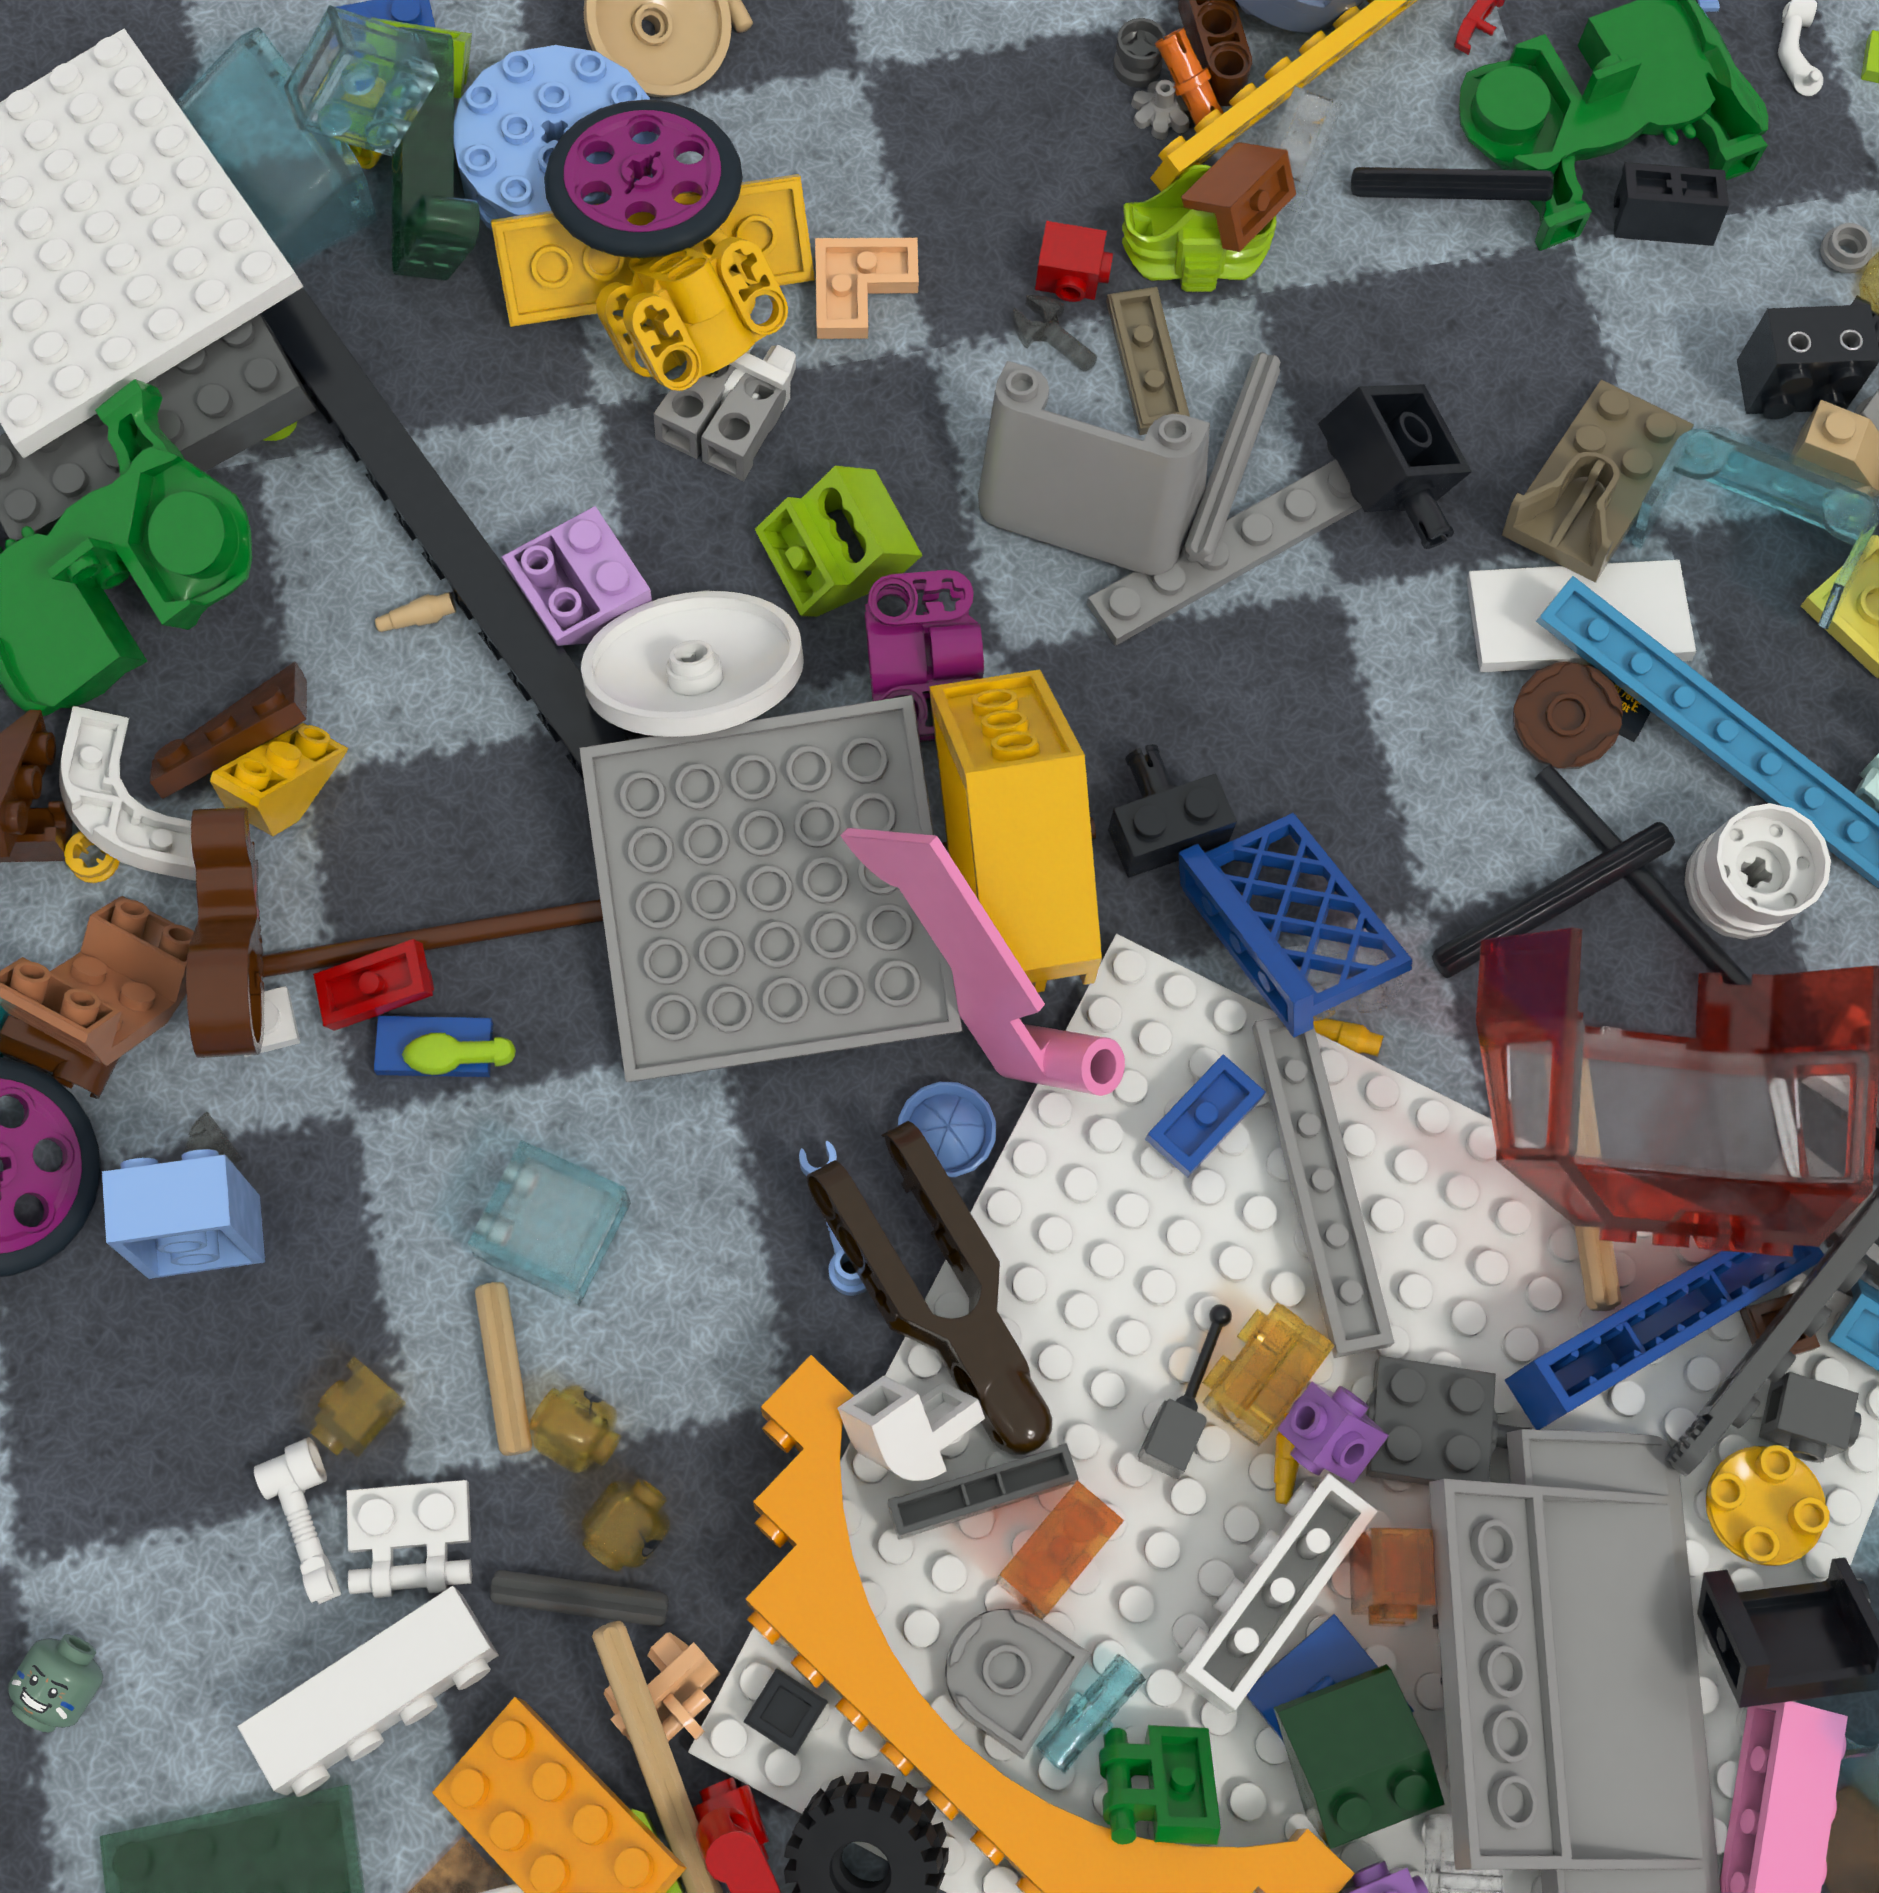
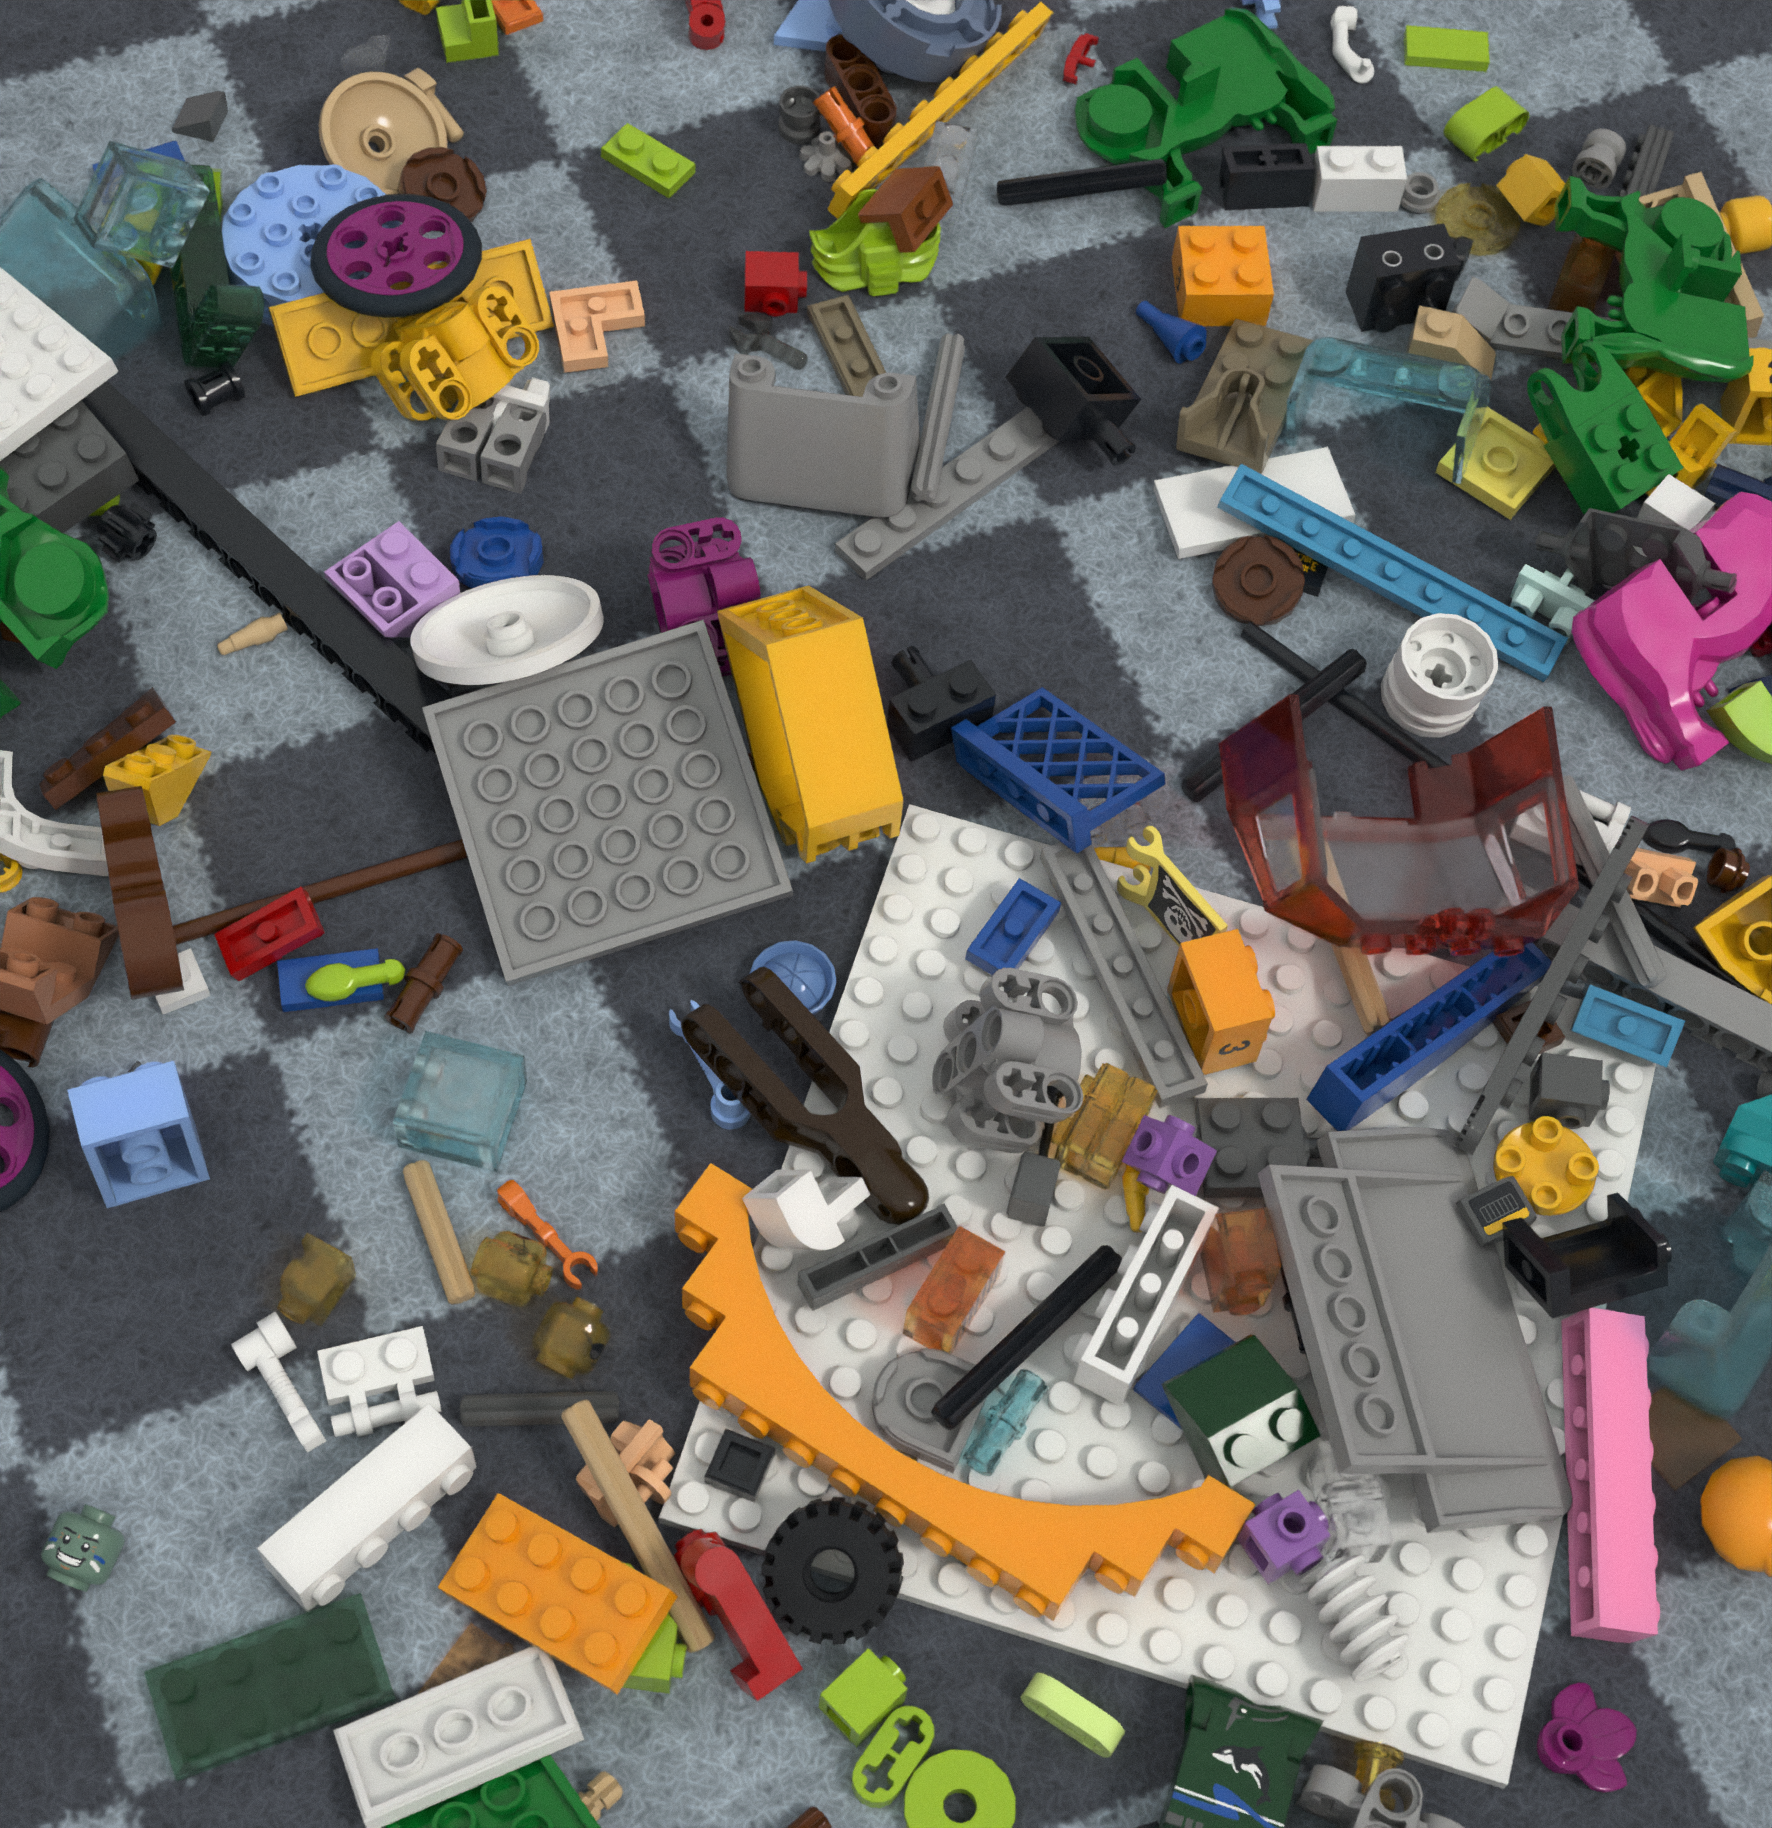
camera: 10 degrees left, 10 degrees down
(294, 470) = (126, 532): none -> black gear
(420, 305) = (215, 388): none -> black bush
(535, 1067) = (424, 982): none -> reddish brown pin
(598, 1355) = (519, 1206): none -> orange piece
(702, 553) = (495, 551): none -> blue tile
(718, 85) = (445, 177): none -> reddish brown tile
(805, 538) = (583, 526): lime piece -> none
(956, 85) = (648, 160): none -> lime plate
(986, 975) = (807, 817): bright pink door -> none
(1132, 1618) = (1026, 1337): none -> black axle
(1171, 1288) = (1008, 1059): none -> light grey piece
(1180, 1789) = (1091, 1465): green plate -> none
(1394, 1117) = (1168, 893): none -> flag
(1427, 1249) = (1220, 1001): none -> light orange brick
(1532, 394) = (1180, 336): none -> blue cone
(1595, 324) = (1222, 274): none -> light orange brick
(1698, 1549) = (1492, 1206): none -> slope
(1779, 222) = (1358, 178): none -> white brick

